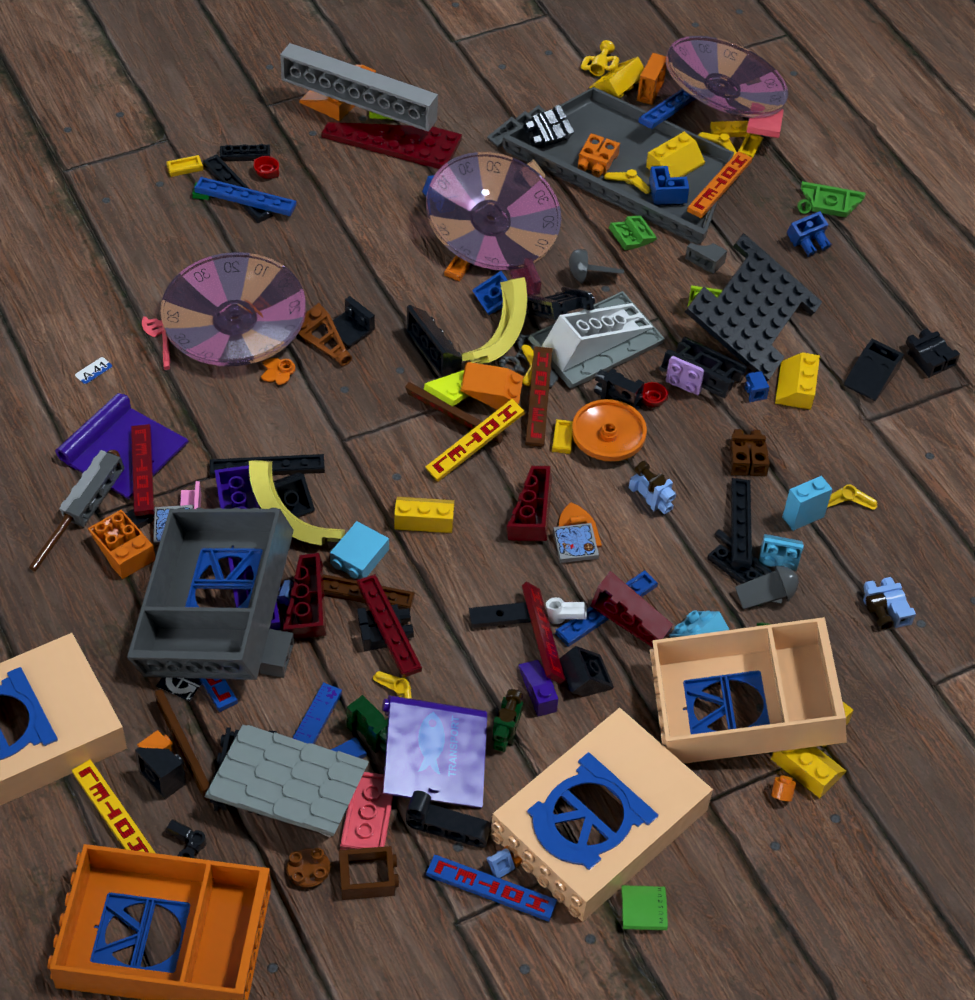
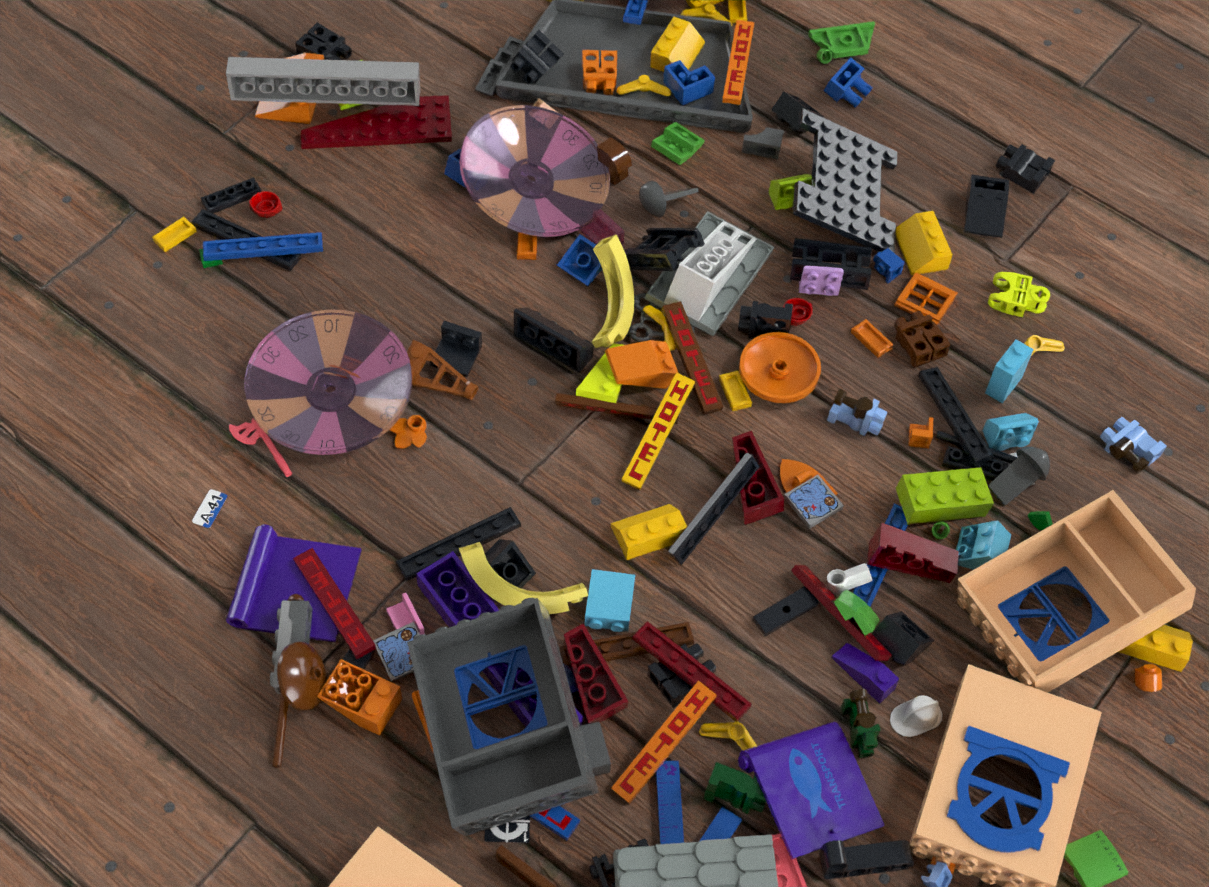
camera: 25 degrees left, 5 degrees up
(77, 506) = (301, 675): none -> reddish brown dish
(335, 668) = (663, 742): none -> orange tile
(384, 65) = (324, 43): none -> black hips
(482, 512) = (713, 508): none -> black tile
(556, 634) = (853, 606): none -> bright green slope
(559, 737) = (916, 716): none -> white piece
(566, 224) = (616, 158): none -> reddish brown brick
(671, 602) = (936, 527): none -> bright green hinge
(689, 578) = (944, 495): none -> lime brick
(701, 527) = (921, 435): none -> orange panel
(707, 438) = (872, 338): none -> orange tile
(753, 233) = (788, 109): none -> black slope
(798, 429) = (933, 287): none -> orange piece
(859, 450) = (1012, 288): none -> neon yellow piece

